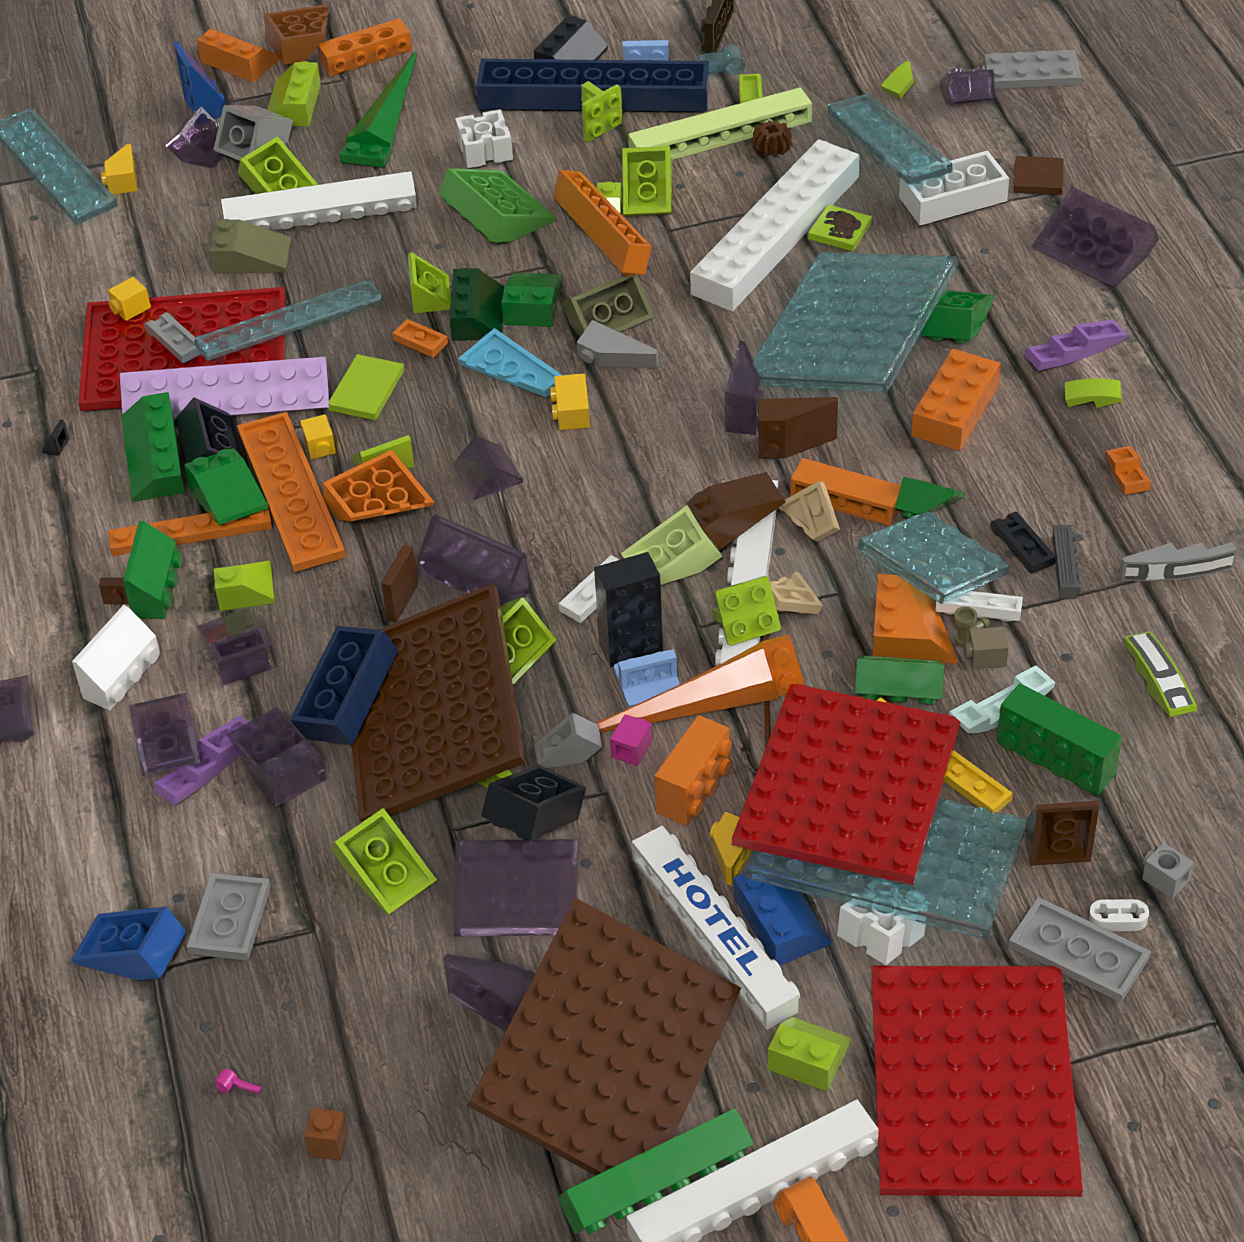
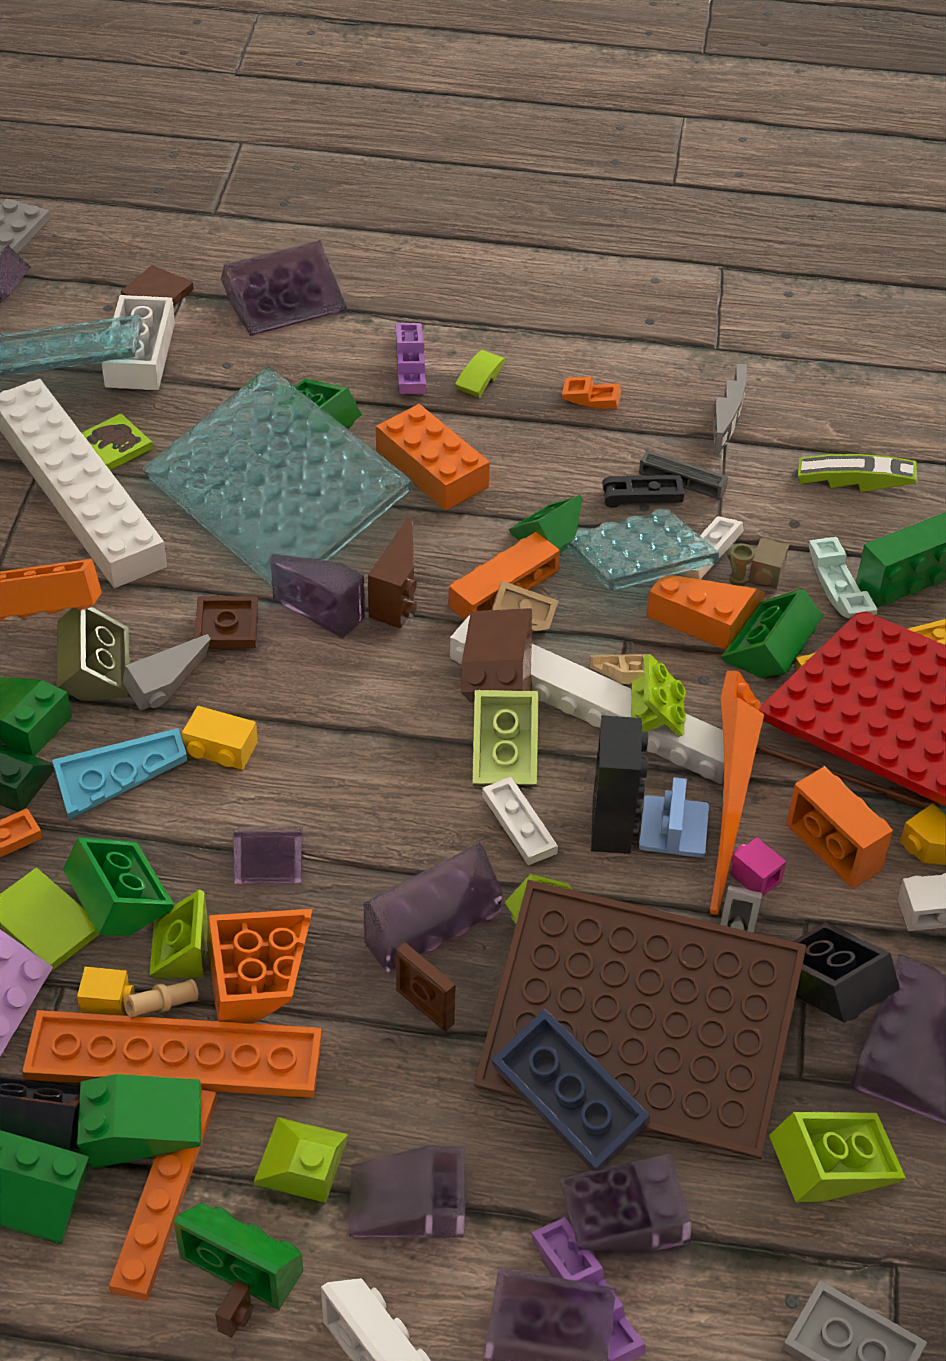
camera: 70 degrees left, 0 degrees up
(324, 462) = (161, 998): none -> tan pin
(403, 402) = (116, 885): none -> green slope
(690, 360) = (227, 620): none -> reddish brown plate

